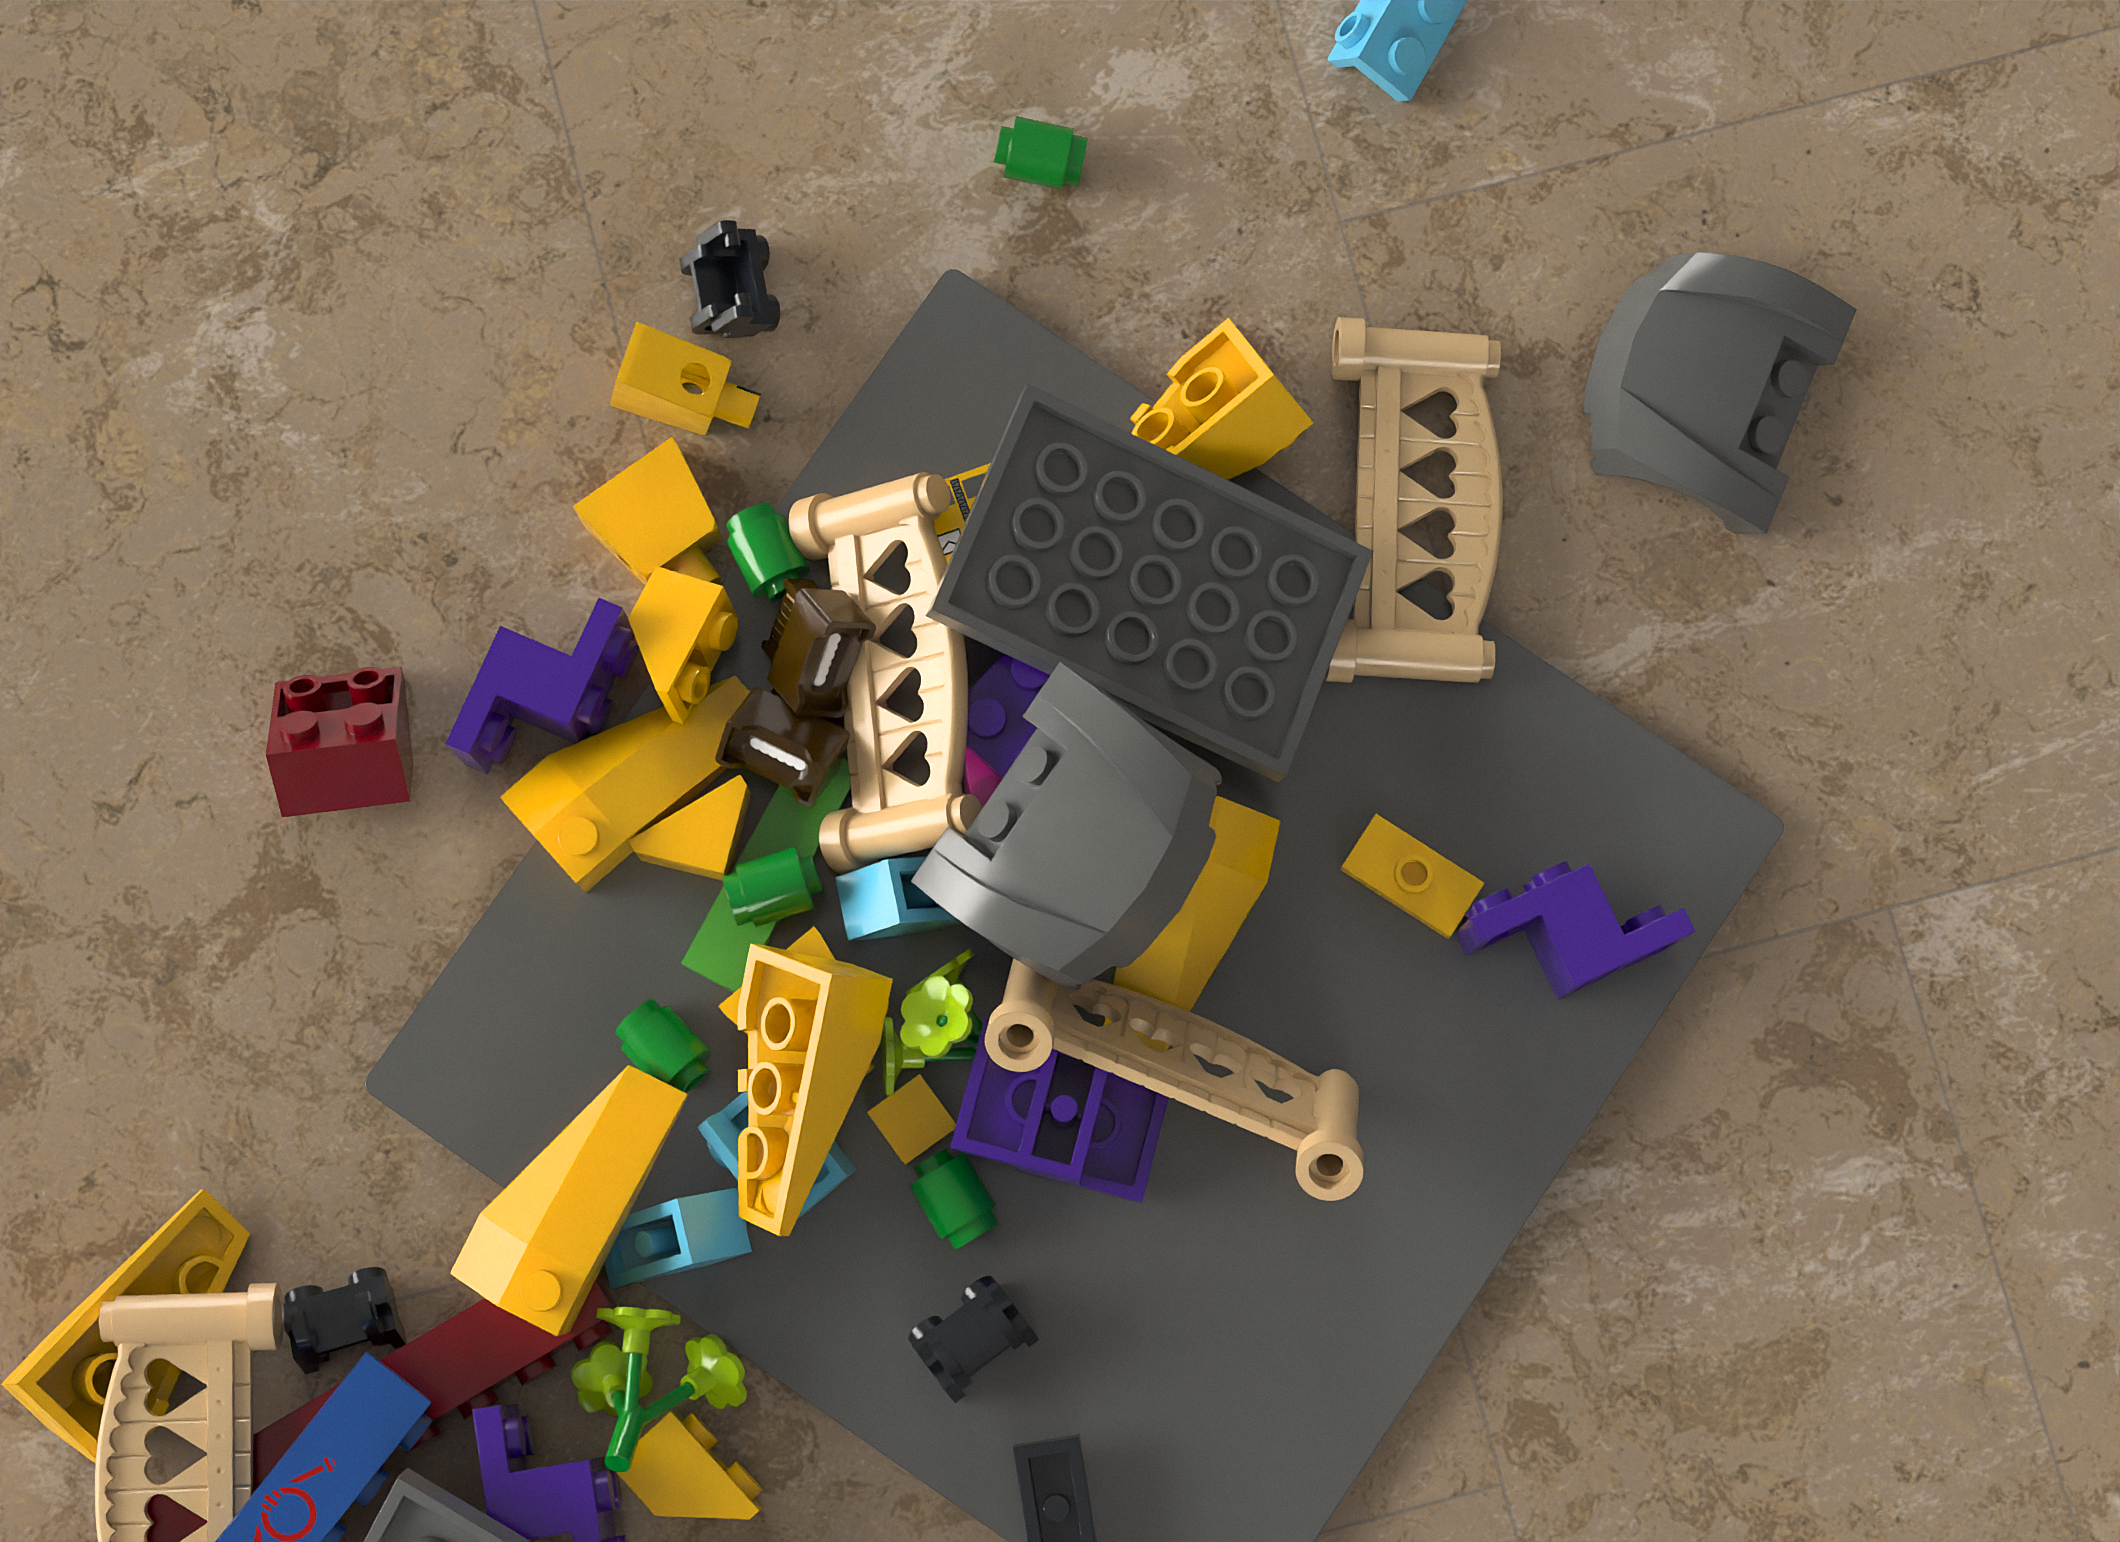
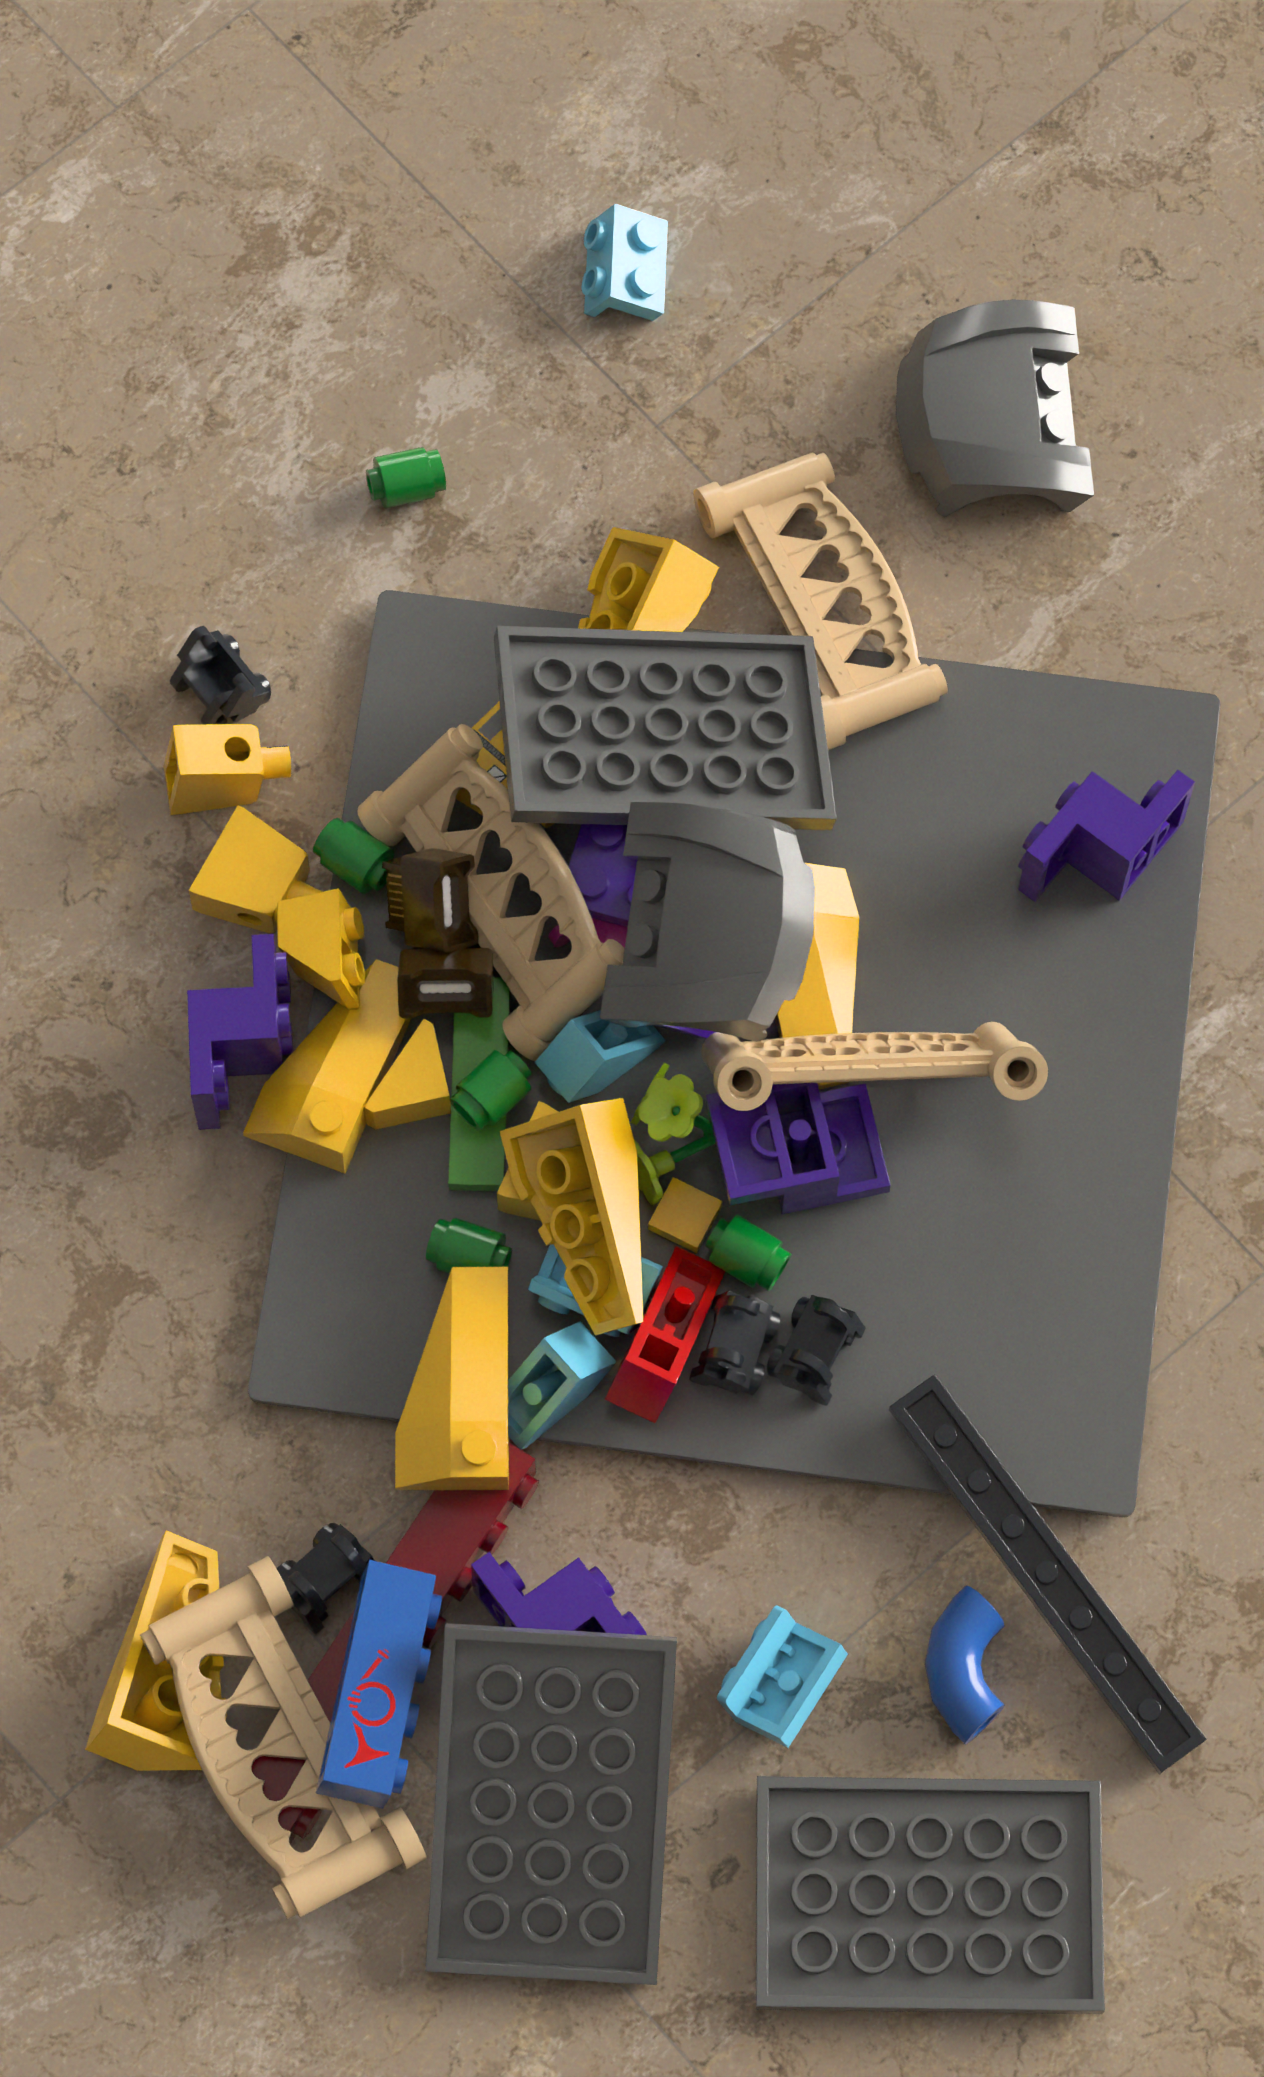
camera: 25 degrees left, 10 degrees down
(340, 741) = (97, 1151): dark red slope -> none
(618, 1377) = (563, 1511): lime plant -> none
(683, 1477) = (652, 1560): yellow slope -> none
(821, 1245) = (665, 1335): none -> red slope
(891, 1292) = (735, 1343): none -> black piece
(1412, 876) = (964, 861): yellow plate -> none

